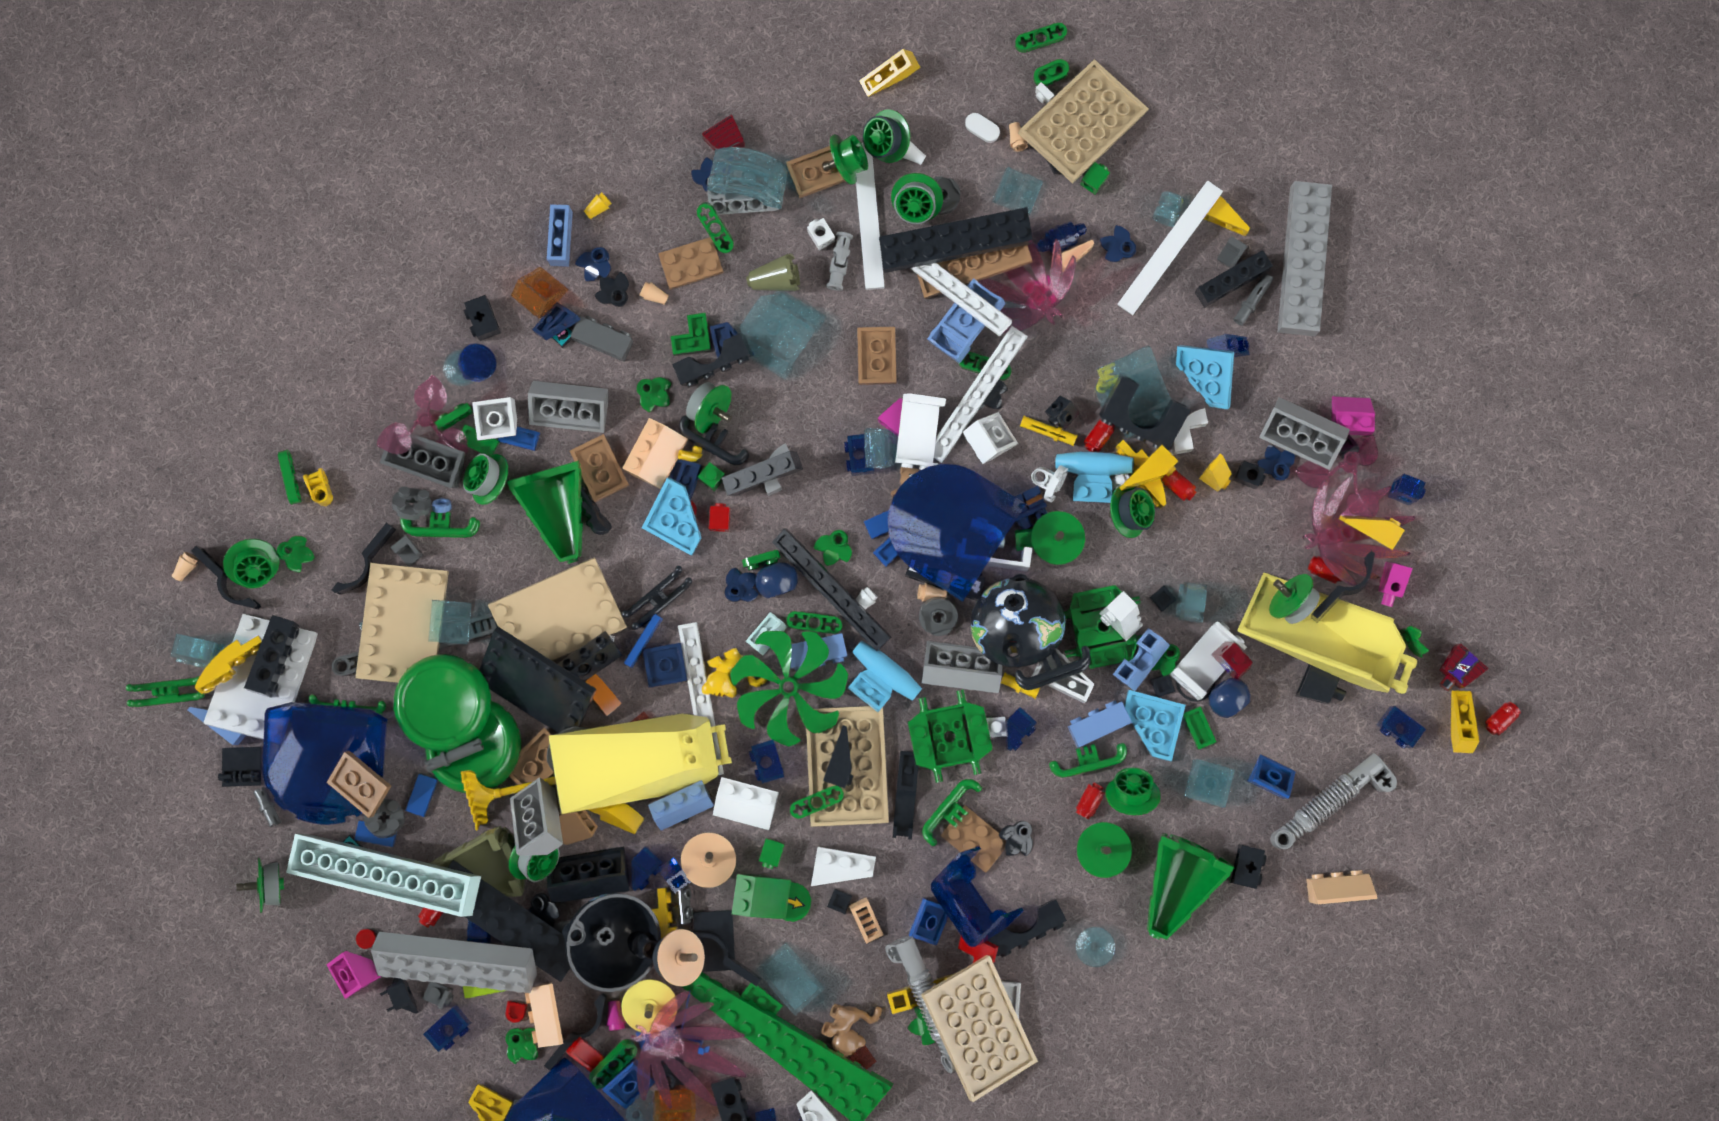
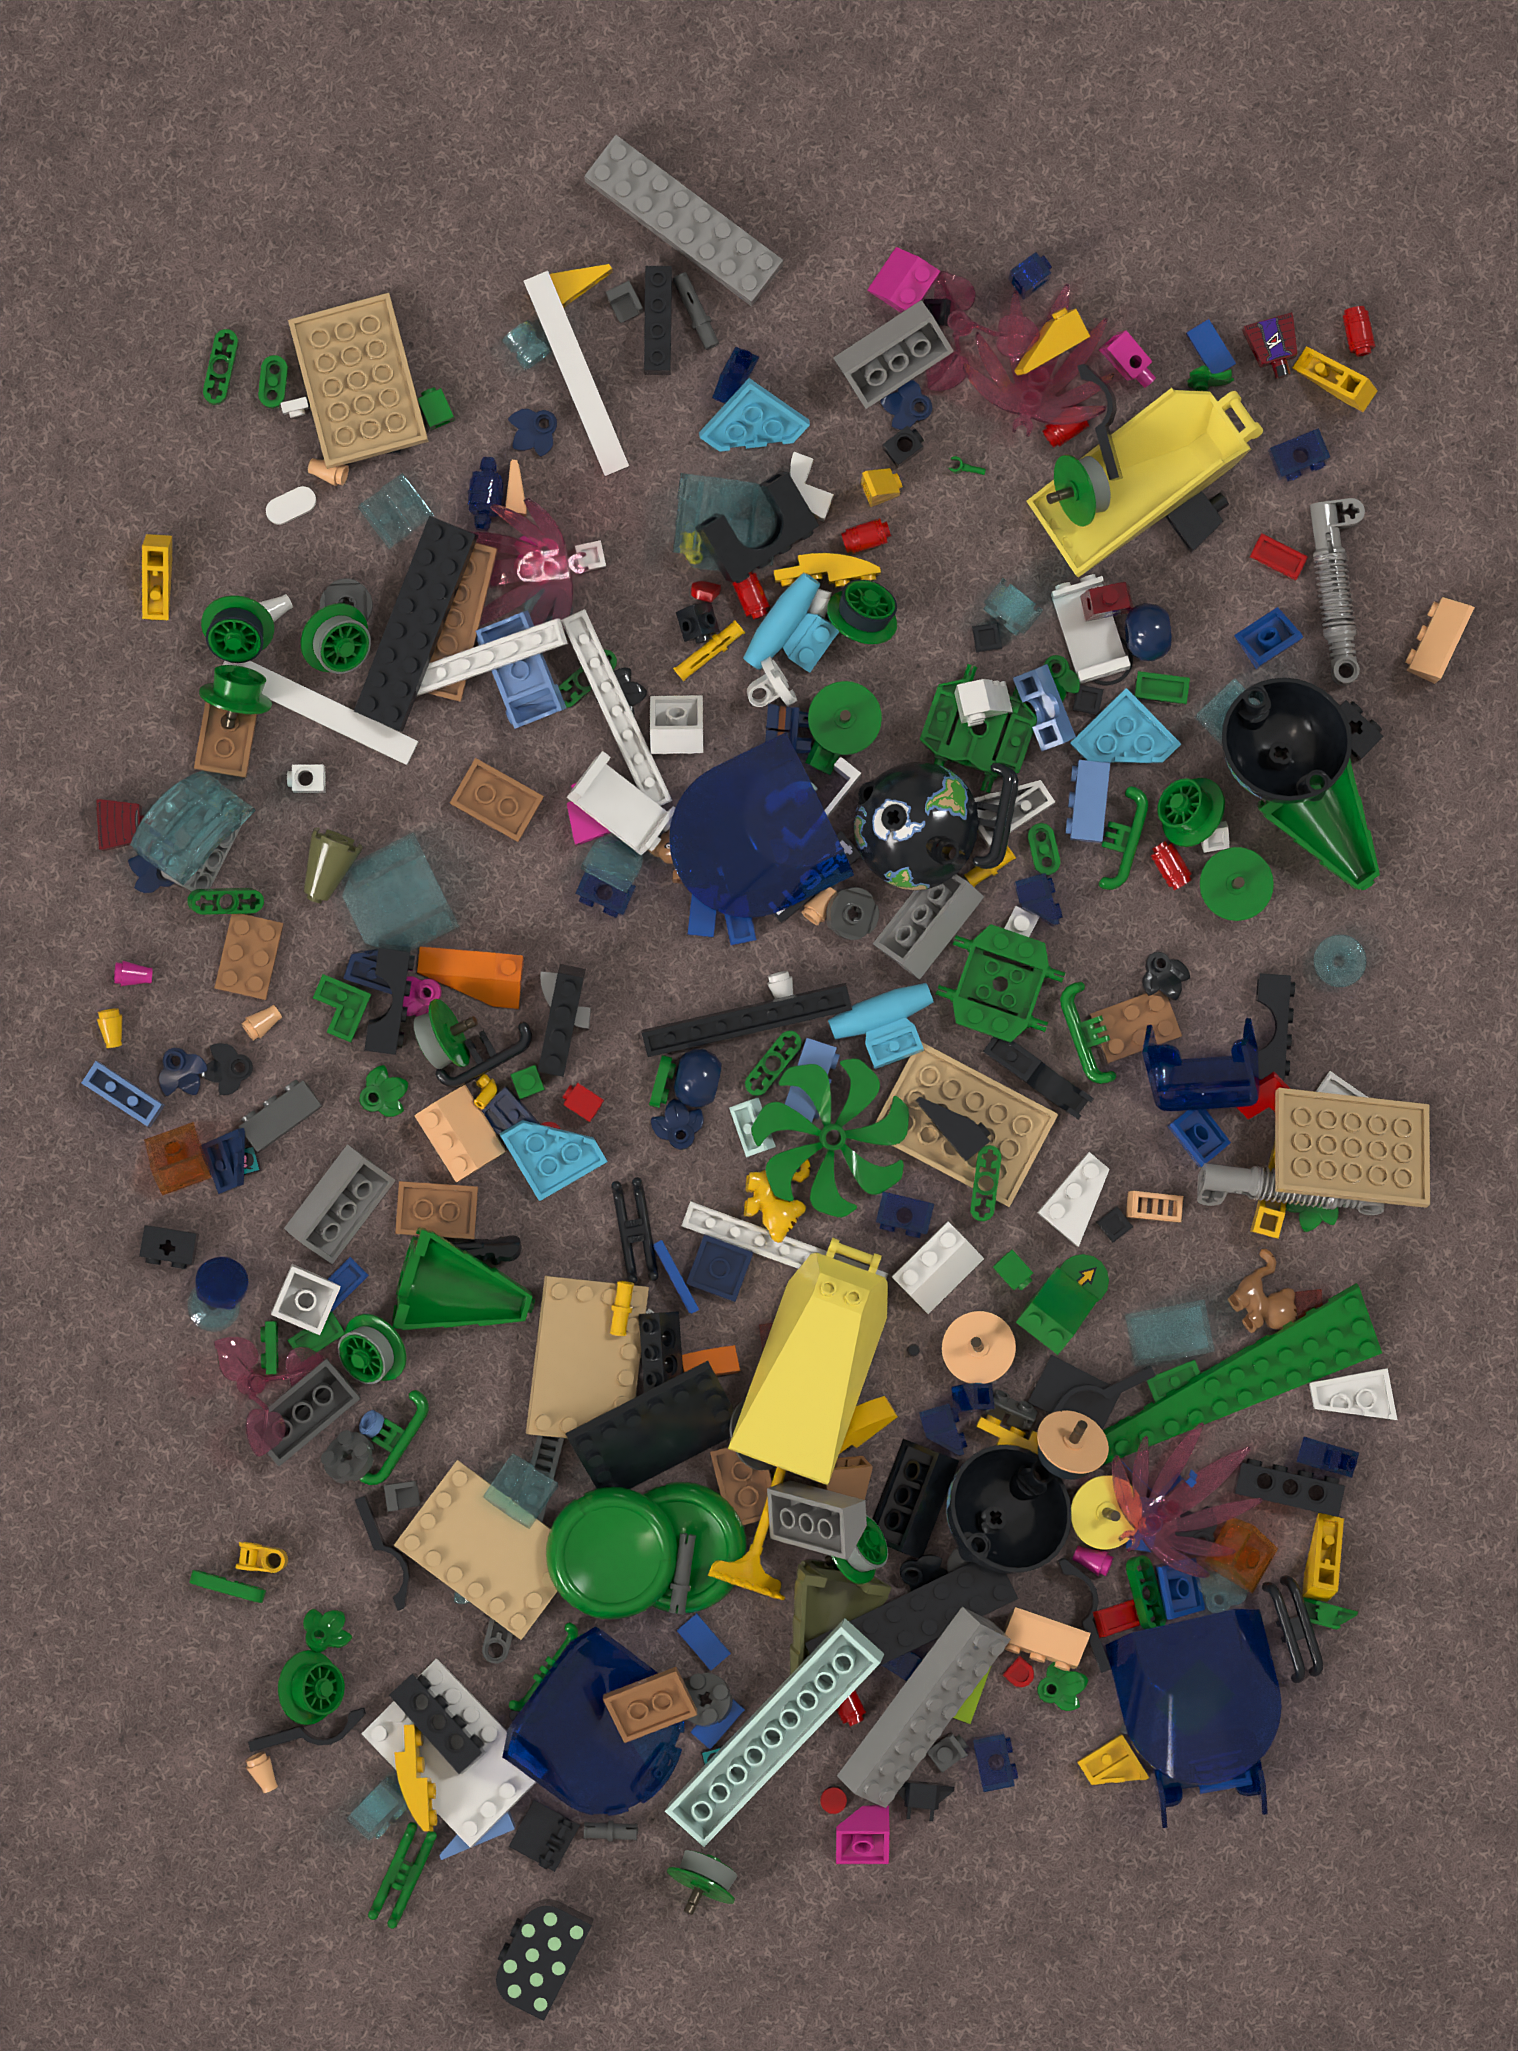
camera: 60 degrees left, 5 degrees up
(159, 808) = (540, 1955): none -> black brick
(602, 617) = (621, 1308): none -> yellow pin
(637, 199) = (131, 974): none -> dark pink cone
(681, 805) = (896, 1343): medium blue brick -> none
(725, 378) = (417, 1001): none -> dark pink plate
(761, 407) = (481, 975): none -> orange wedge
(832, 550) = (700, 990): green plate -> none
(839, 260) = (352, 774): light grey piece -> none
(1051, 713) = (1047, 848): none -> green plate
(1062, 325) = (594, 555): none -> white plate
(1084, 406) = (705, 590): none -> red tile
(1125, 821) = (1218, 840): none -> white plate
(1154, 468) = (829, 555): yellow slope -> none
(1230, 826) = (1295, 723): none -> black piece
(1260, 521) = (966, 467): none -> green hand
(1327, 753) = (1278, 556): none -> red tile
(1433, 630) = (1210, 347): none -> blue tile

